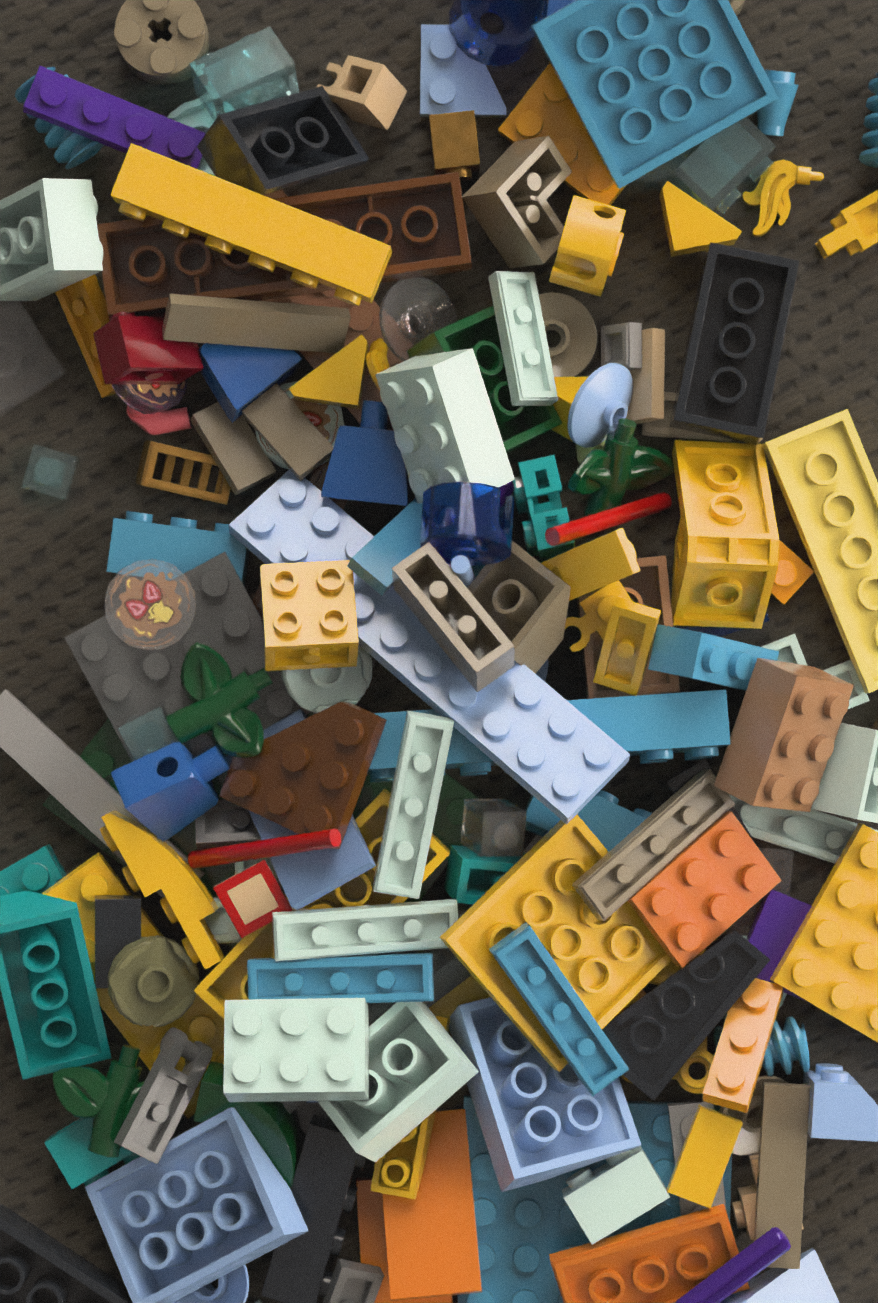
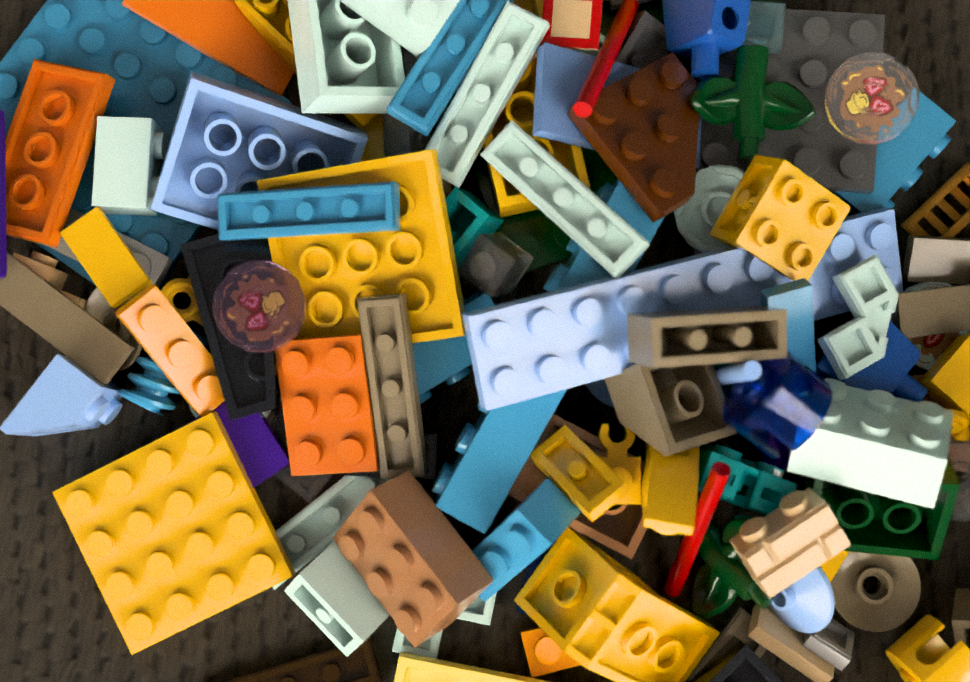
camera: 125 degrees right, 5 degrees down
(324, 495) = (871, 301): none -> light aqua tile
(523, 338) = (900, 561): light aqua tile -> none
(571, 442) = (789, 541): none -> tan brick
(661, 998) = (259, 306): none -> tile

